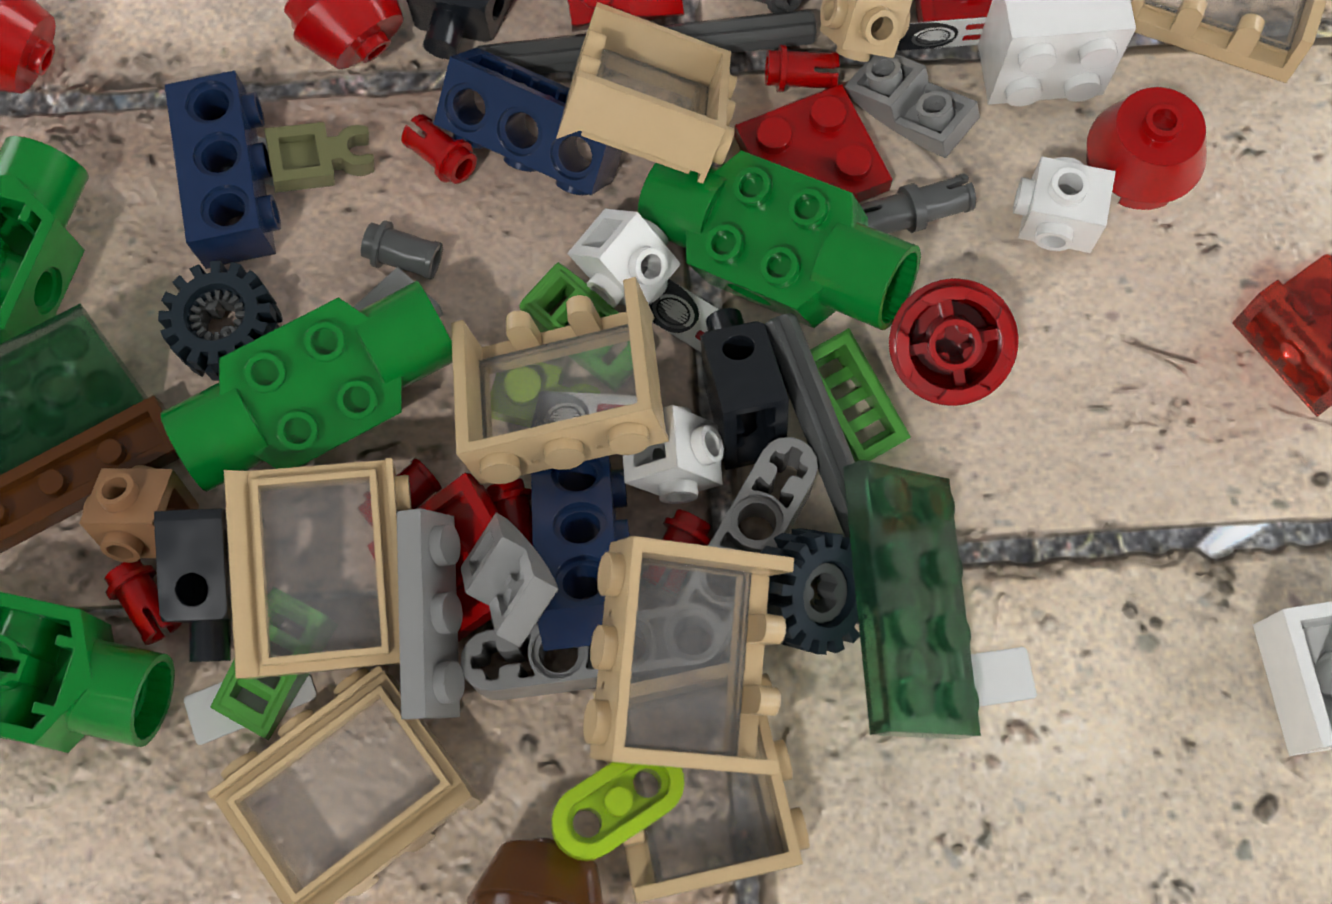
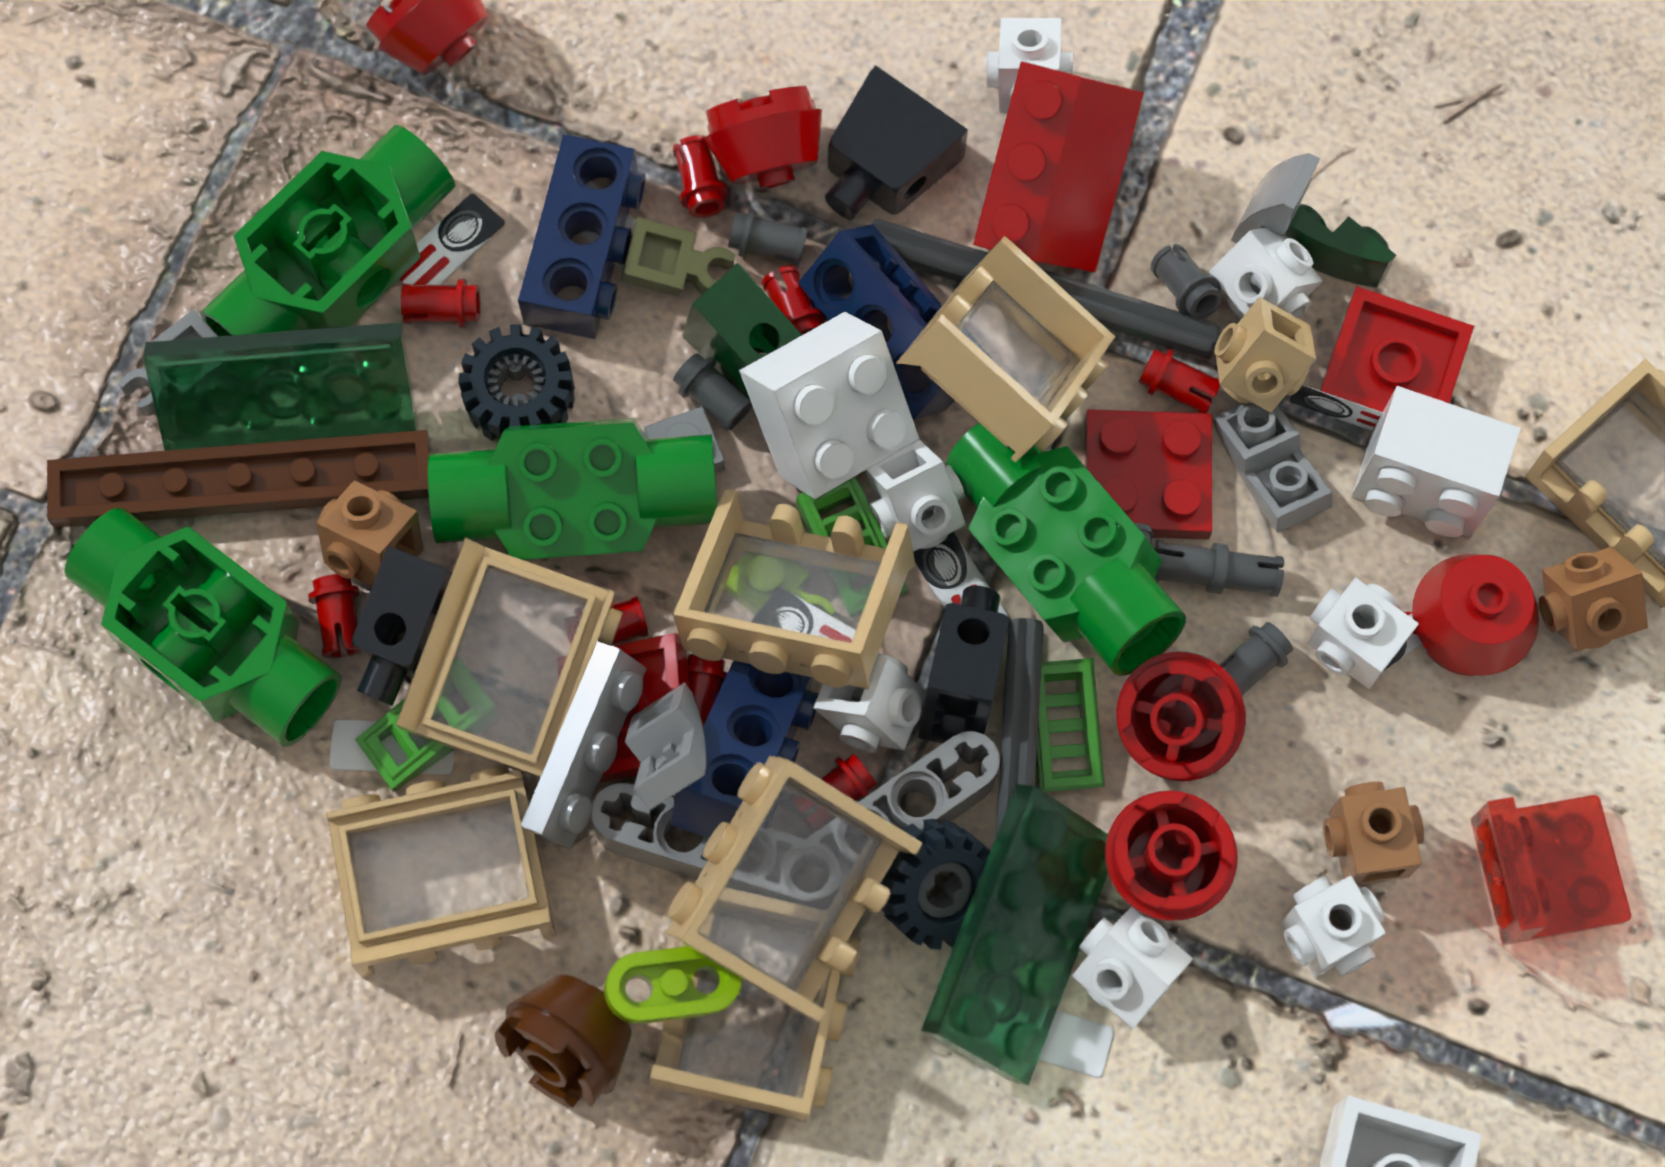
camera: 20 degrees right, 0 degrees up
(109, 229) = (453, 241): none -> sticker
(120, 280) = (441, 303): none -> red pin
(314, 87) = (702, 189): none -> red pin
(388, 102) = (767, 238): none -> dark grey pin
(411, 186) = (734, 322): none -> dark green torso
(511, 209) = (830, 404): none -> white brick
(987, 258) = (1257, 656): none -> dark grey pin
(1009, 467) = (1171, 855): none -> red cone
(1020, 584) = (1130, 965): none -> white brick
(1168, 369) = (1374, 833): none -> medium nougat brick
(1176, 465) = (1321, 945): none -> white brick
(1241, 90) = (1593, 598): none -> medium nougat brick

